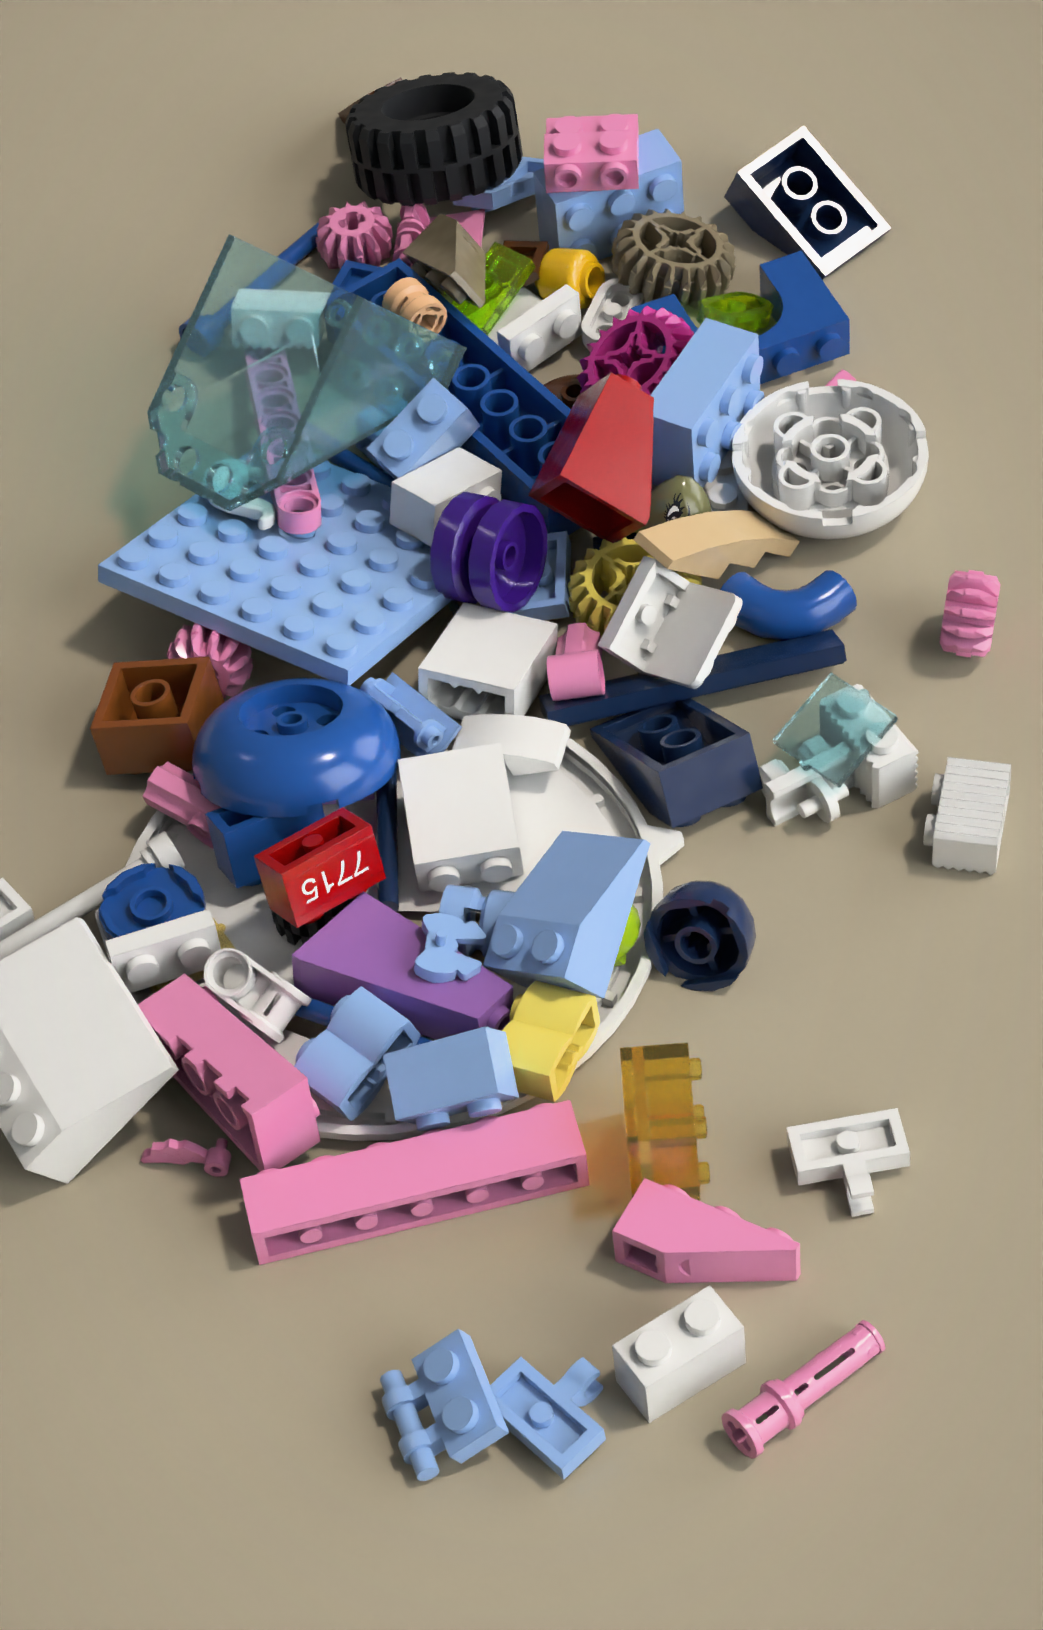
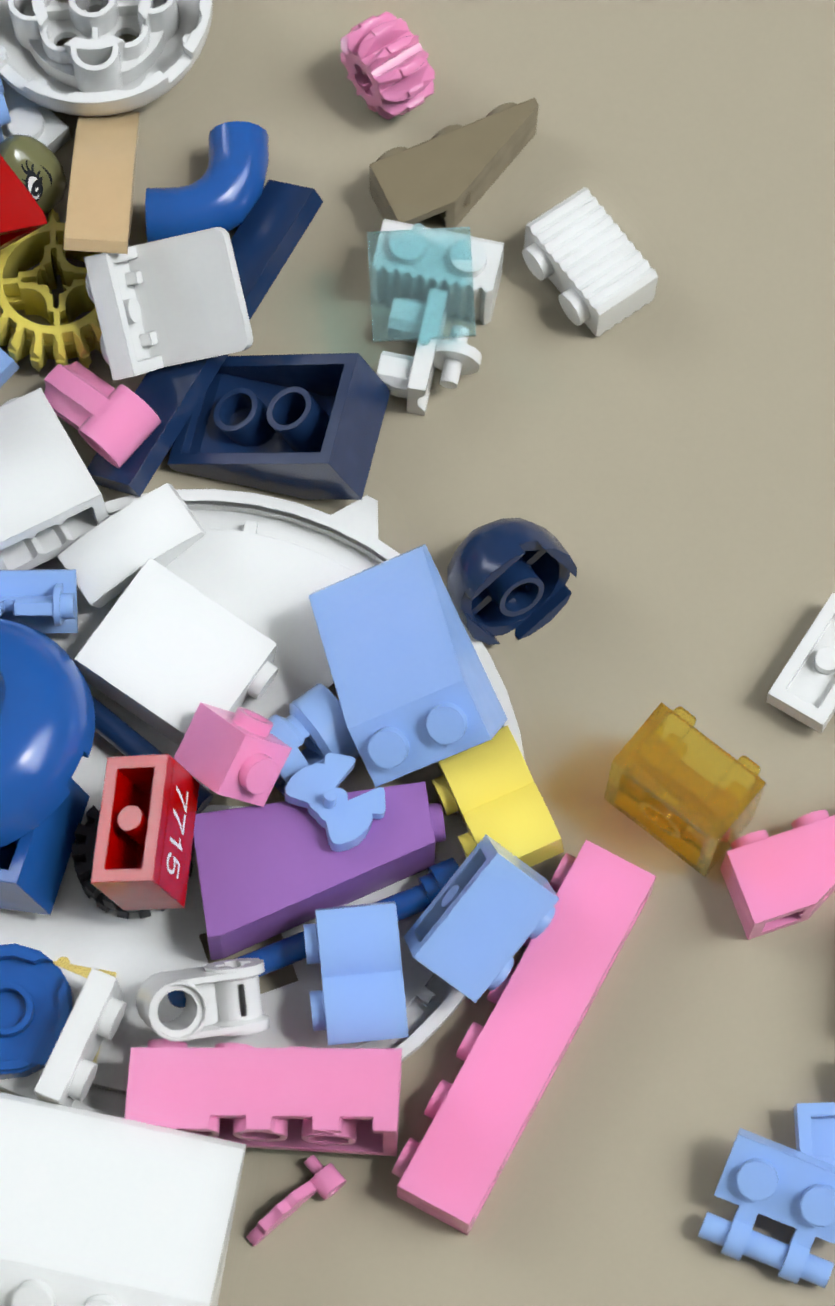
camera: 55 degrees left, 20 degrees up
(419, 874) = (233, 753): none -> bright pink brick
(950, 703) = (453, 170): none -> dark tan slope

